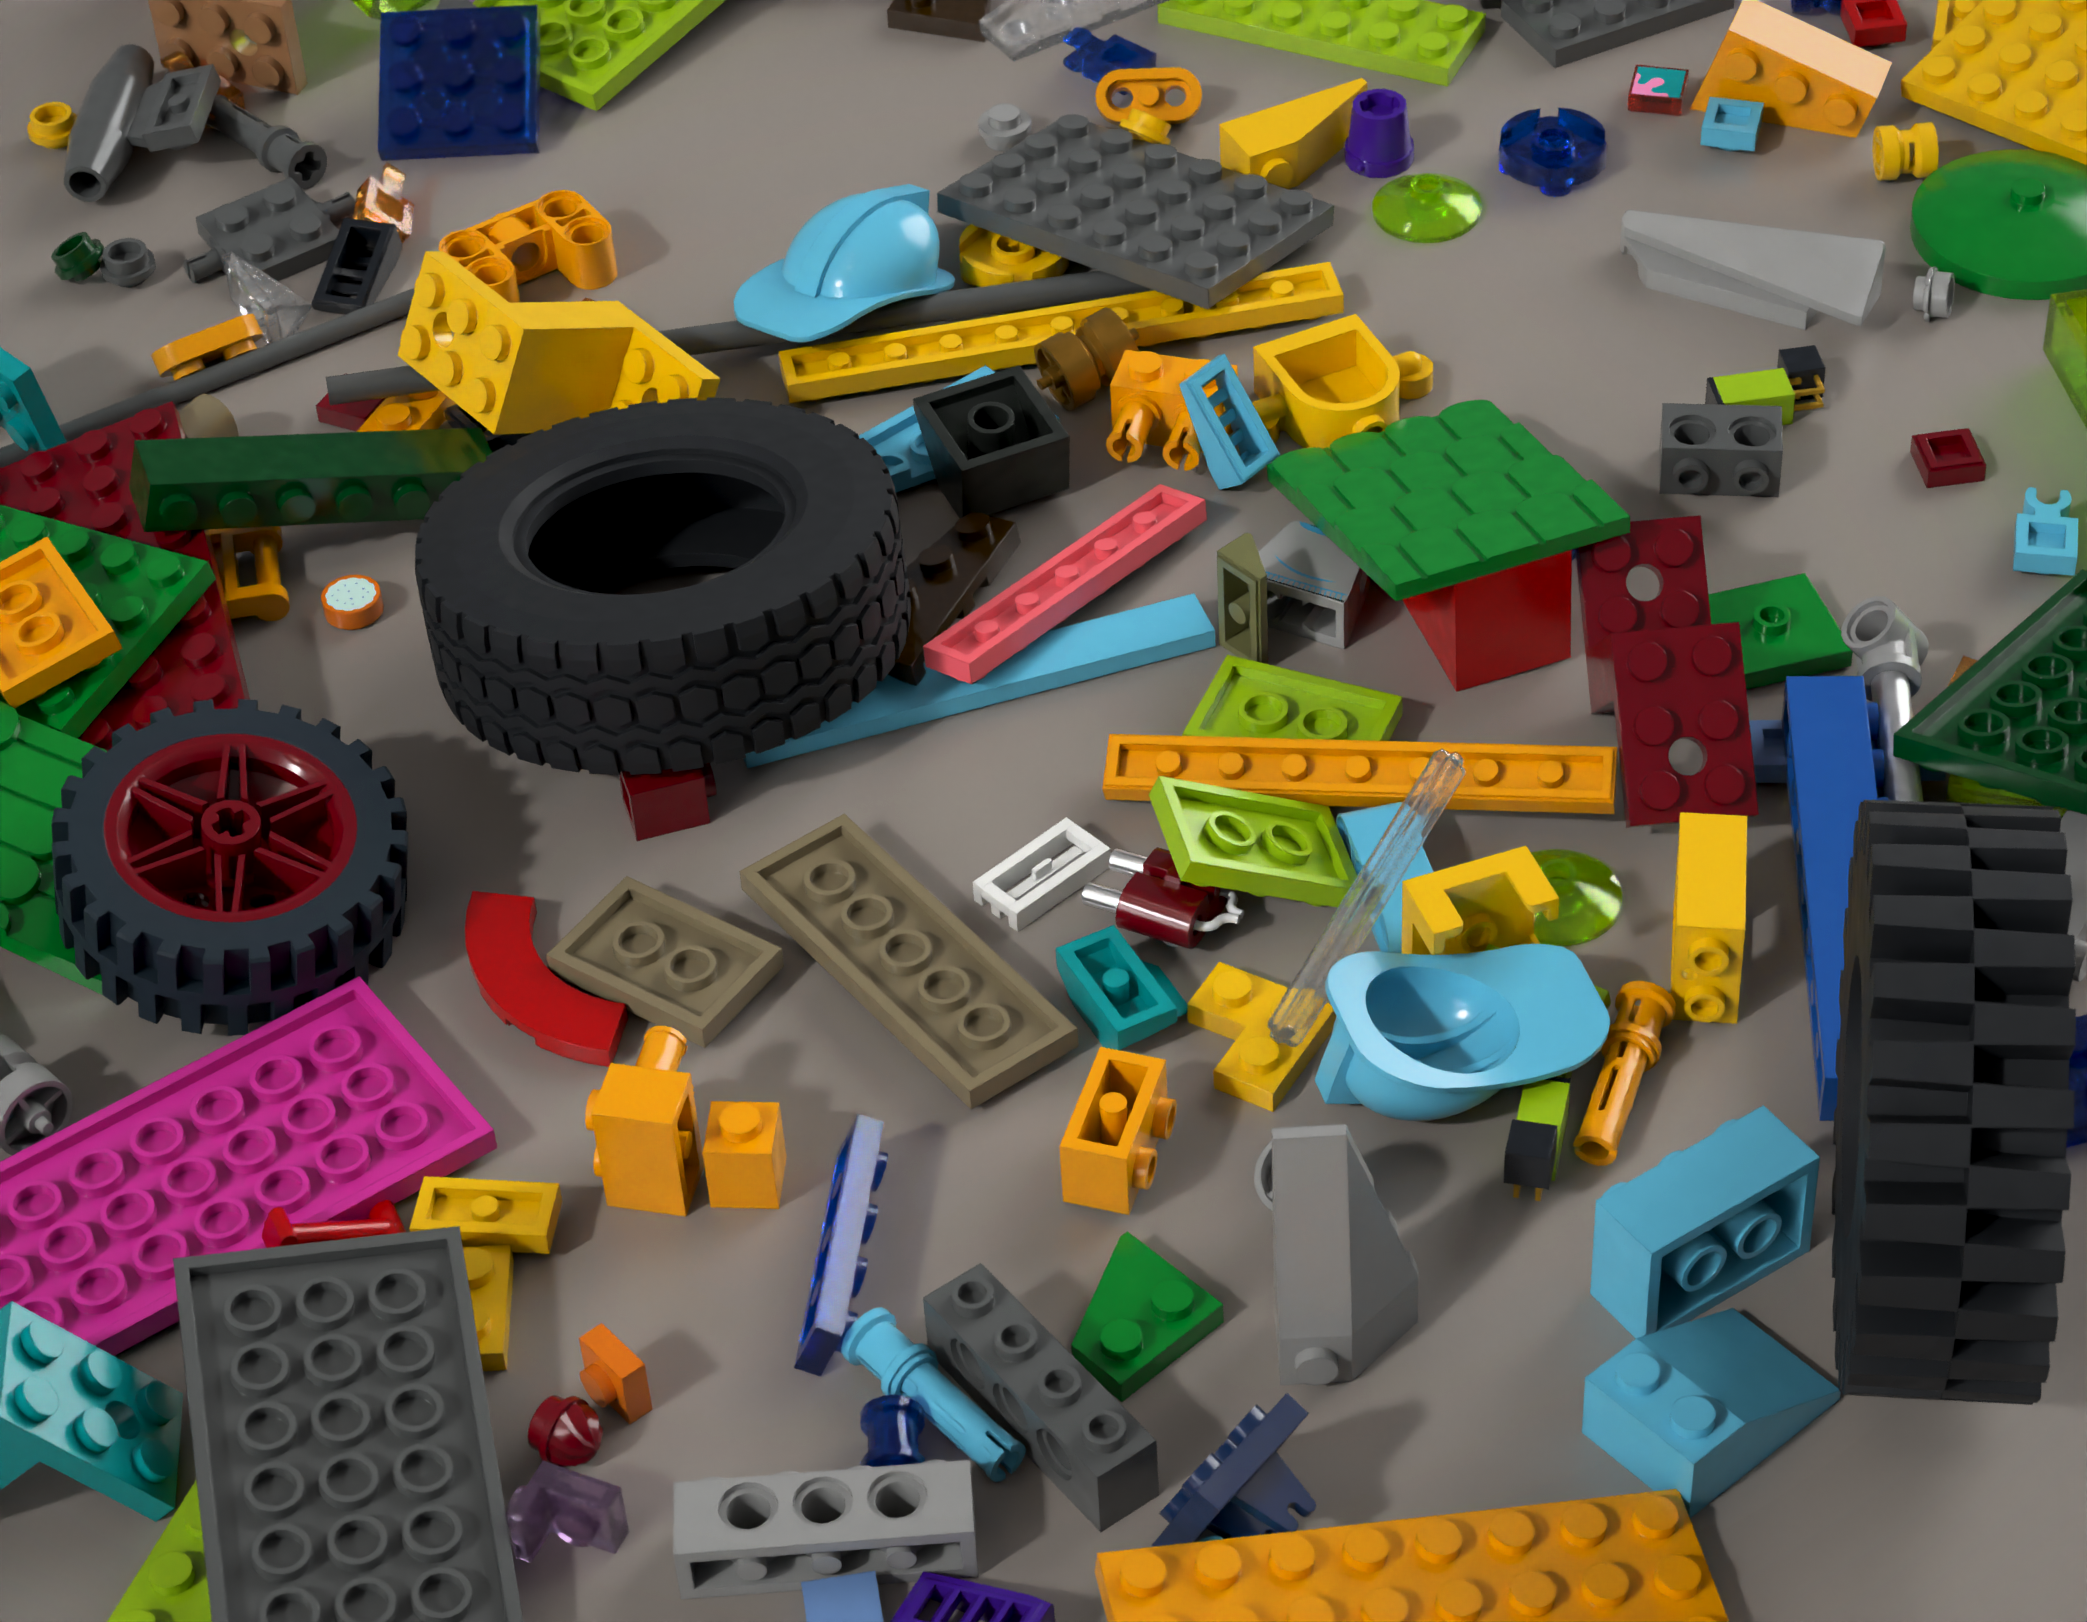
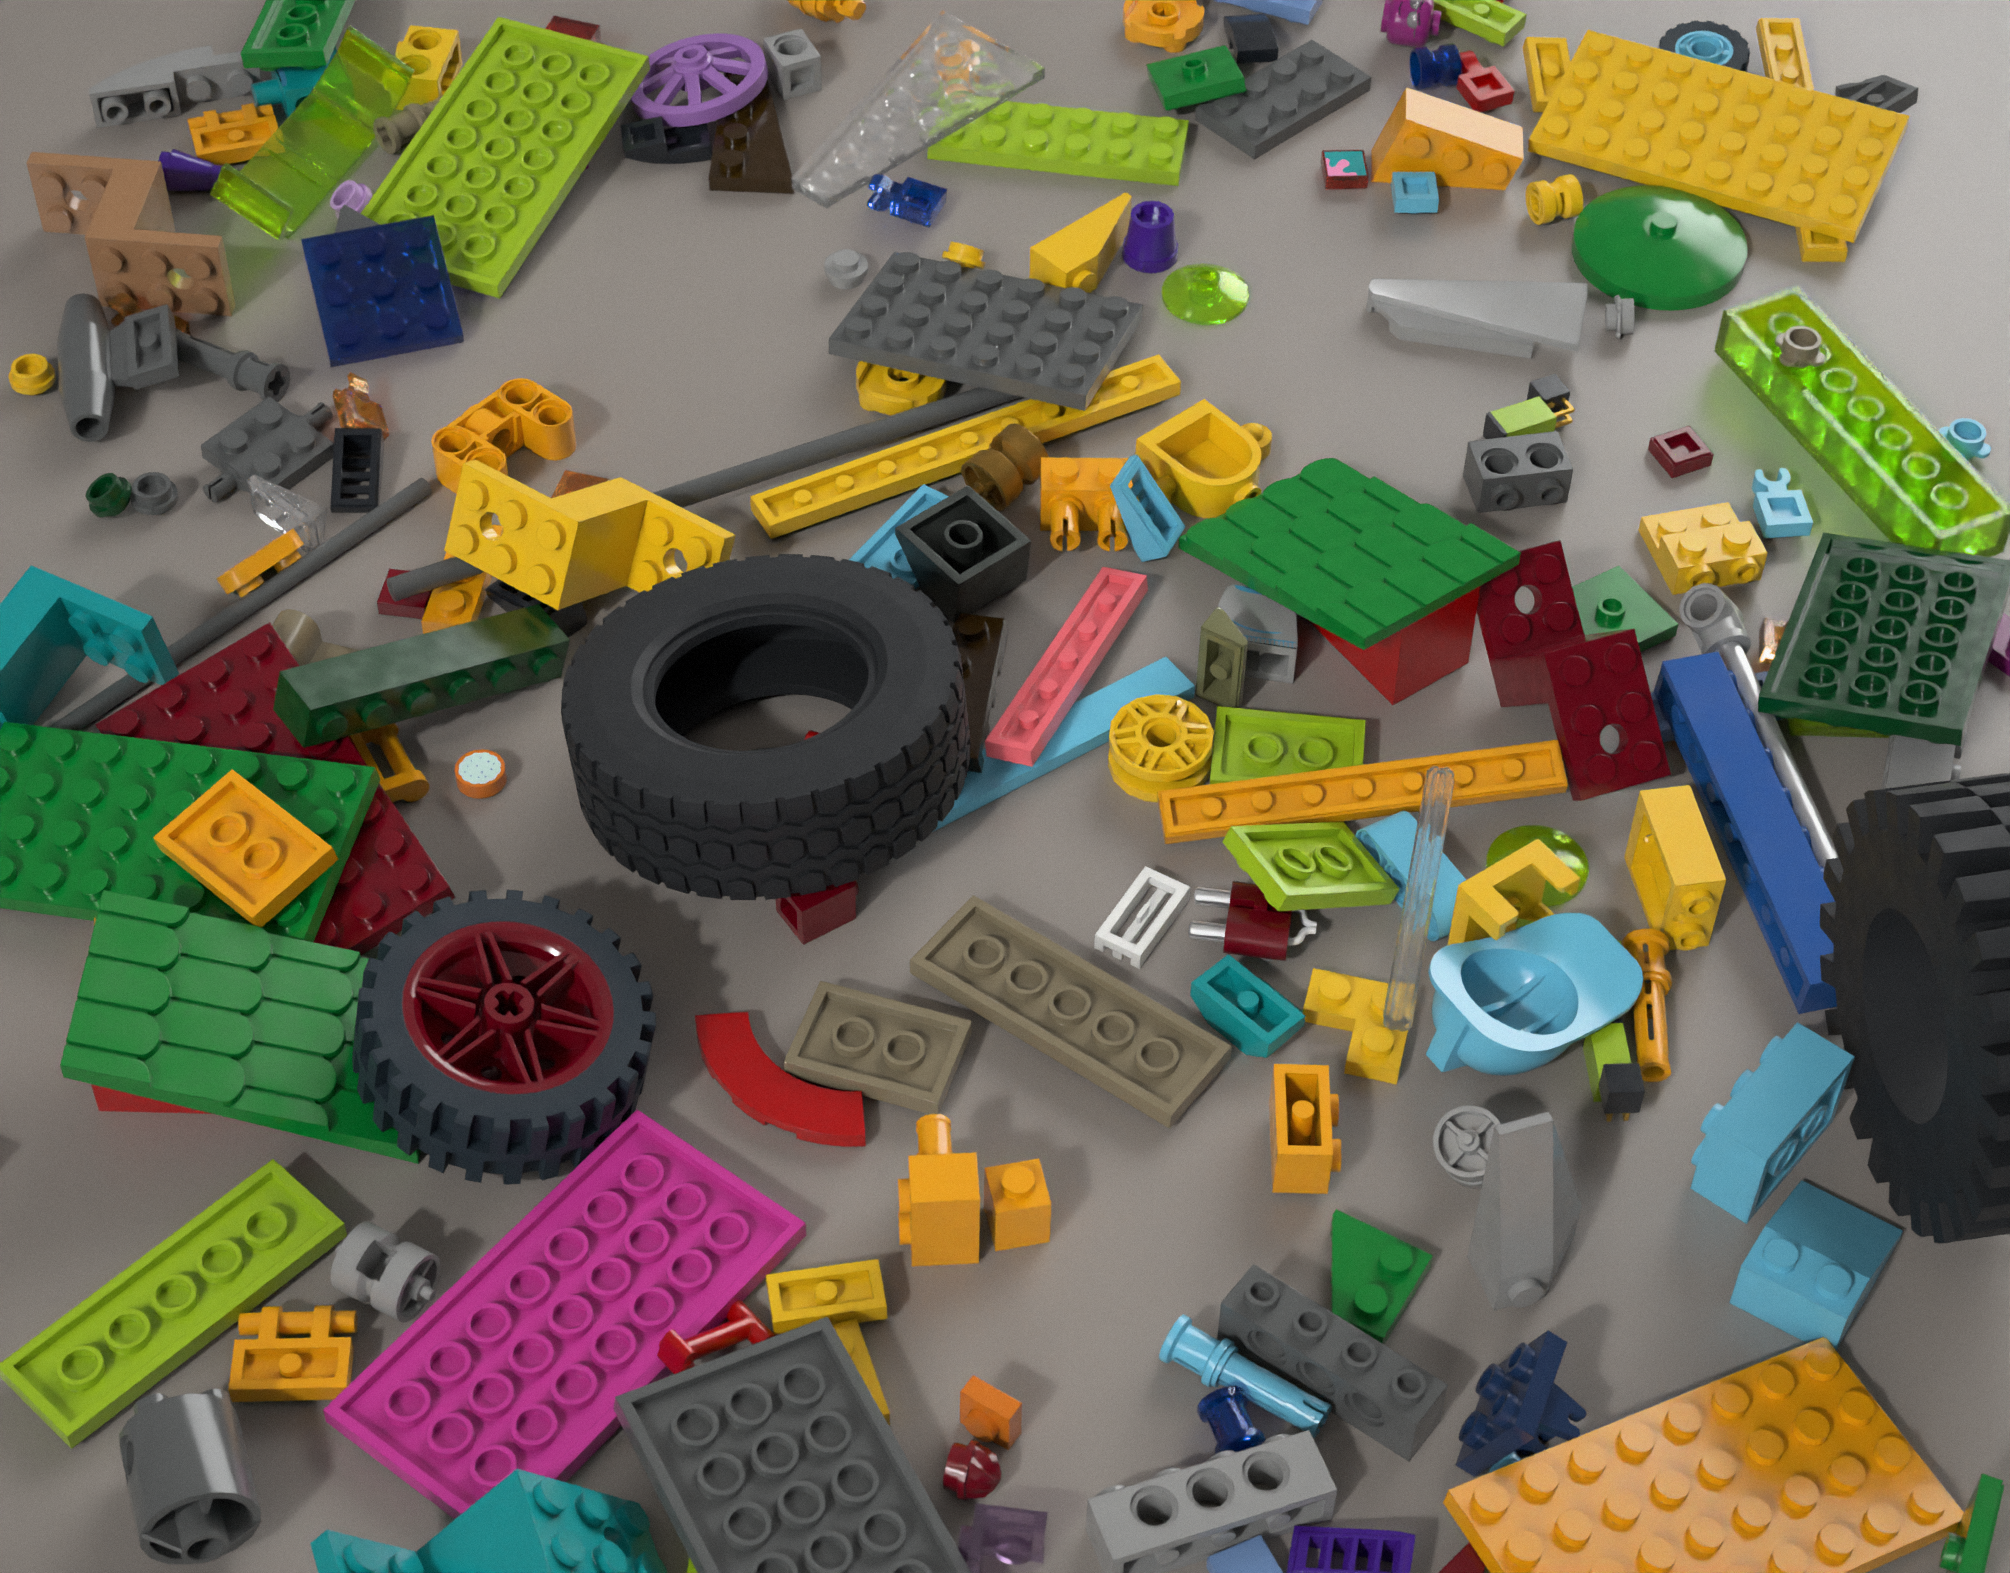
camera: 20 degrees left, 5 degrees up
(845, 1226) = (1122, 1267): clear blue plate -> none
(847, 264) = (782, 417): medium azure piece -> none
(1138, 684) = (1159, 746): none -> yellow wheel
(1148, 92) = (953, 226): light orange plate -> none
(1552, 150) = (1267, 237): clear blue plate -> none
(1929, 568) = (1703, 547): none -> yellow plate

